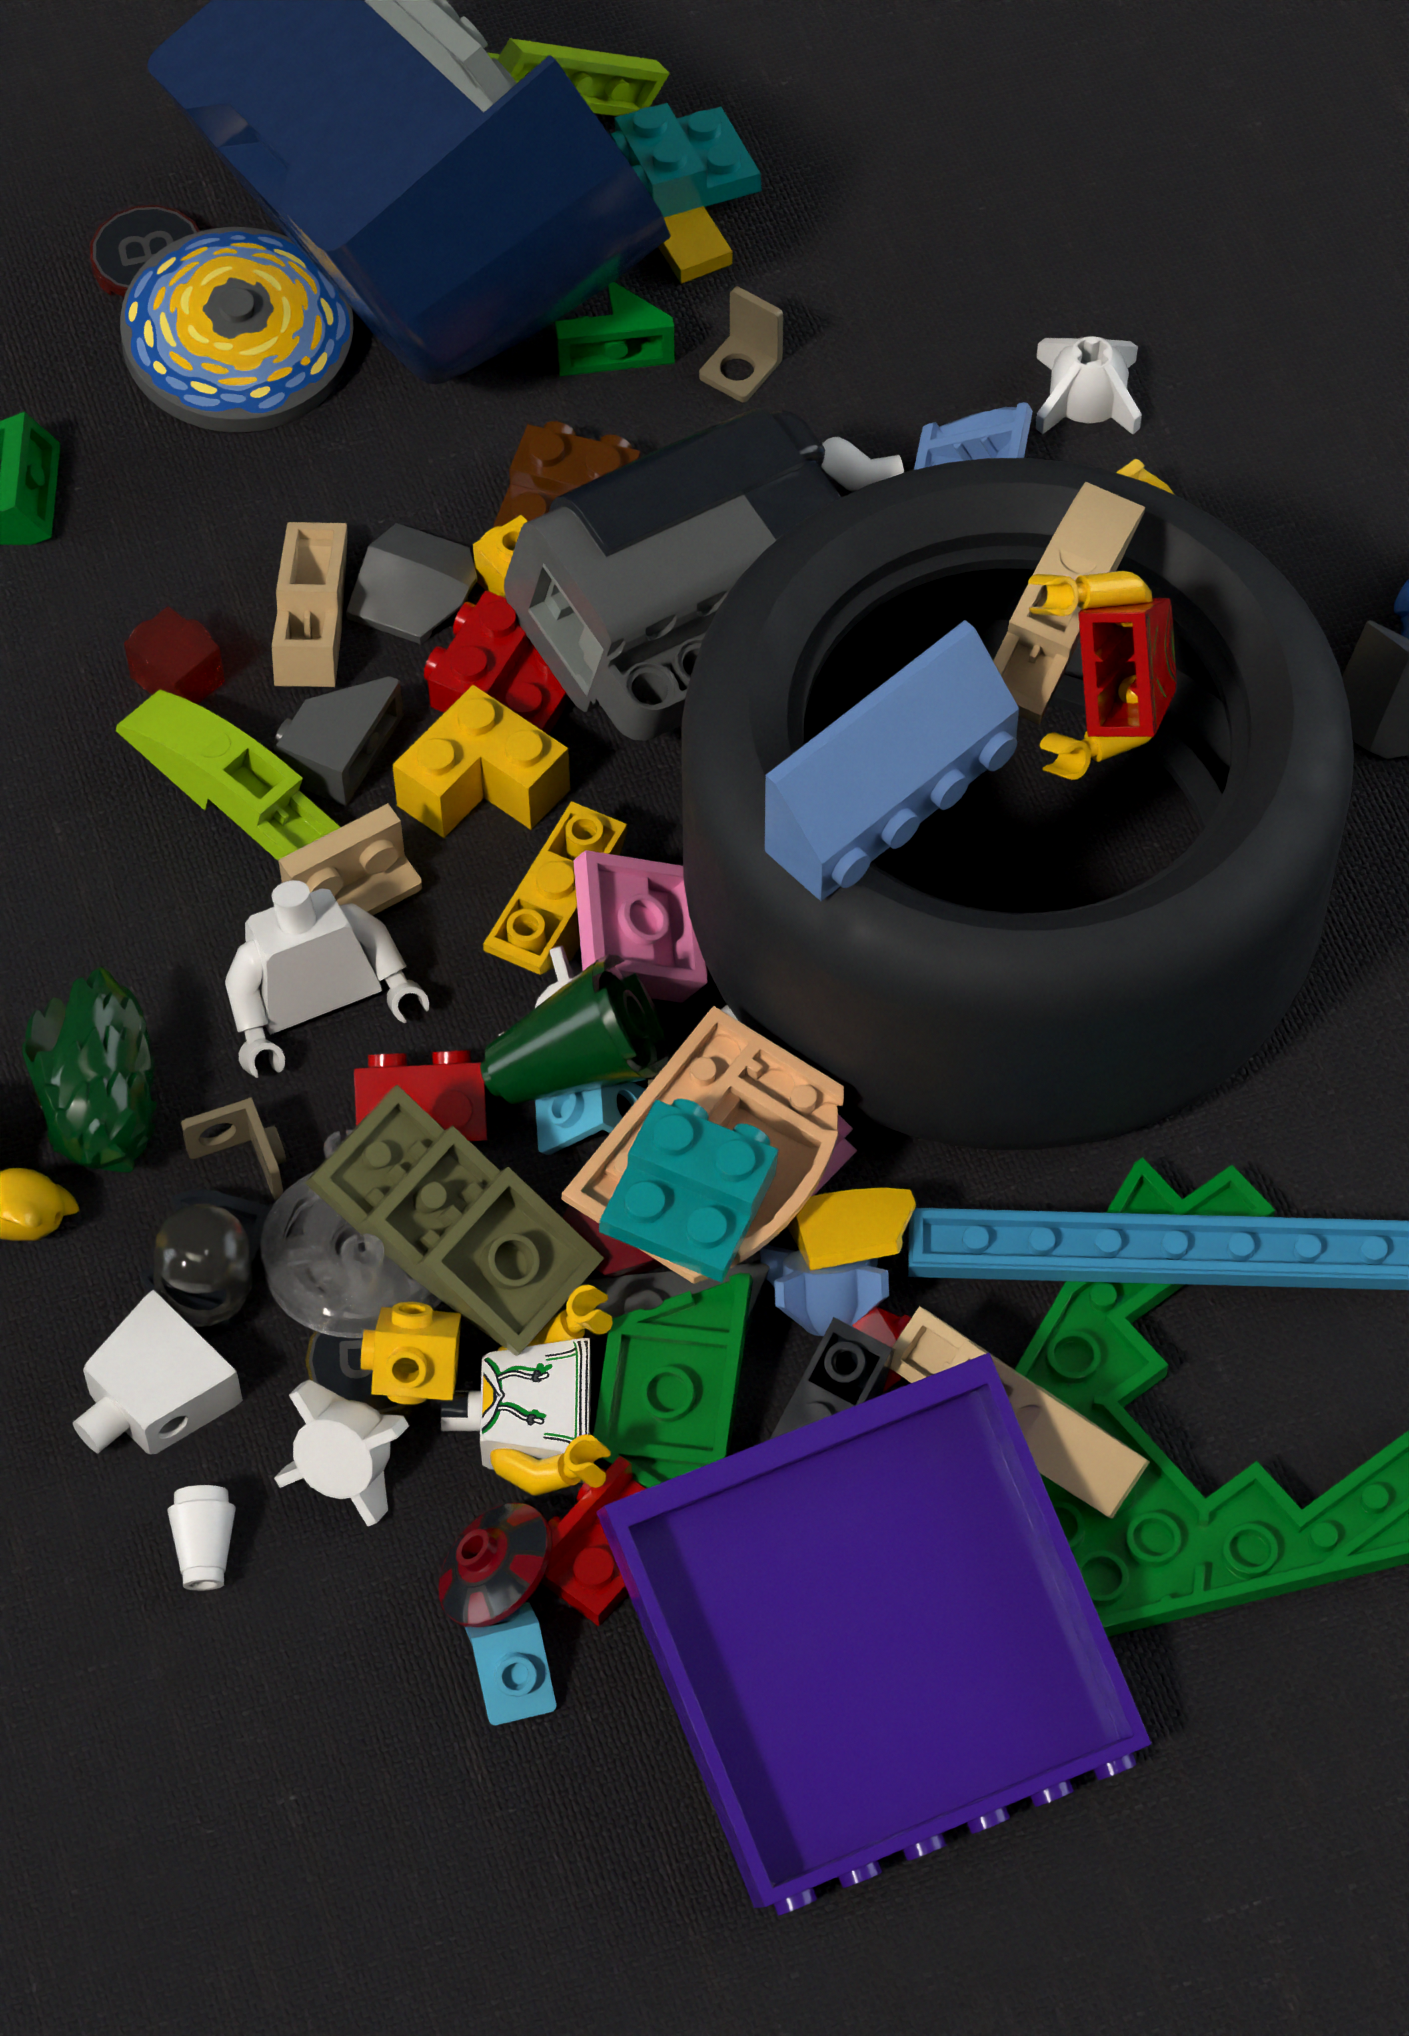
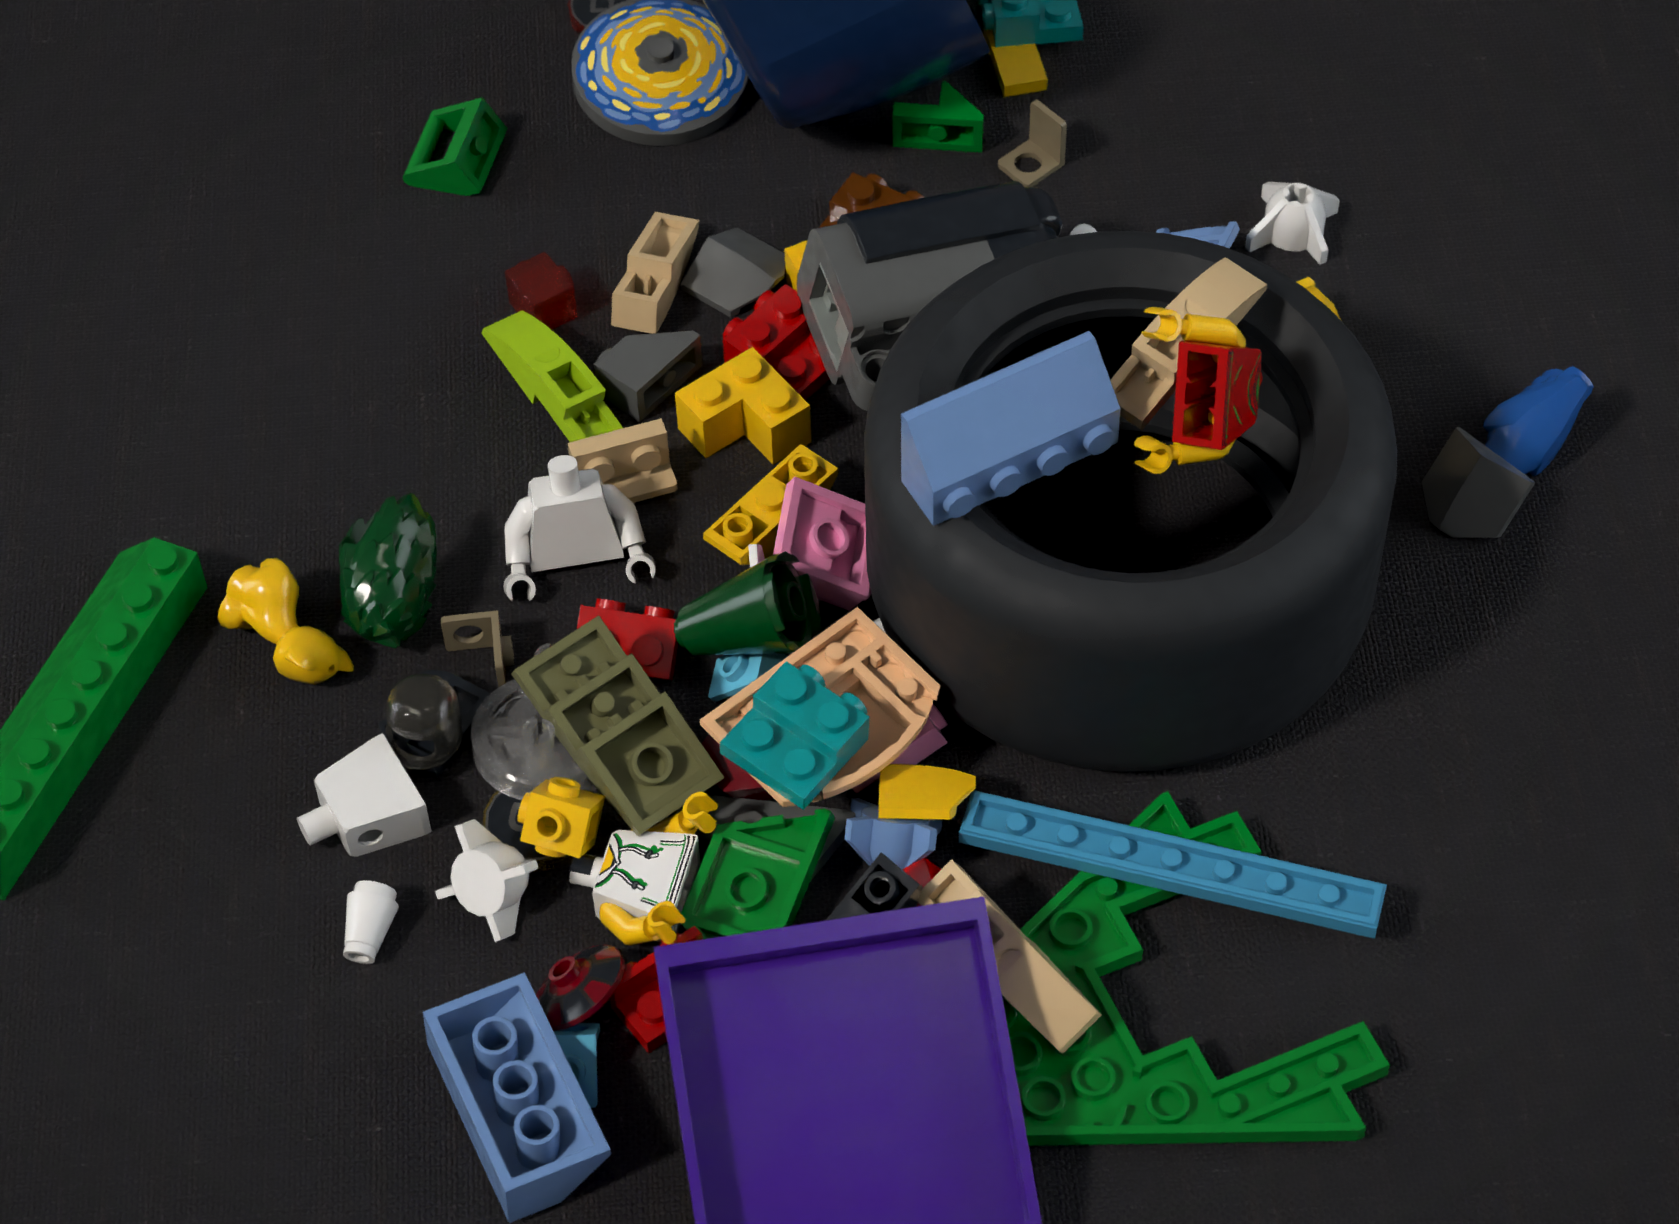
camera: 15 degrees right, 5 degrees down
(461, 1720) = (515, 1095): none -> medium blue slope

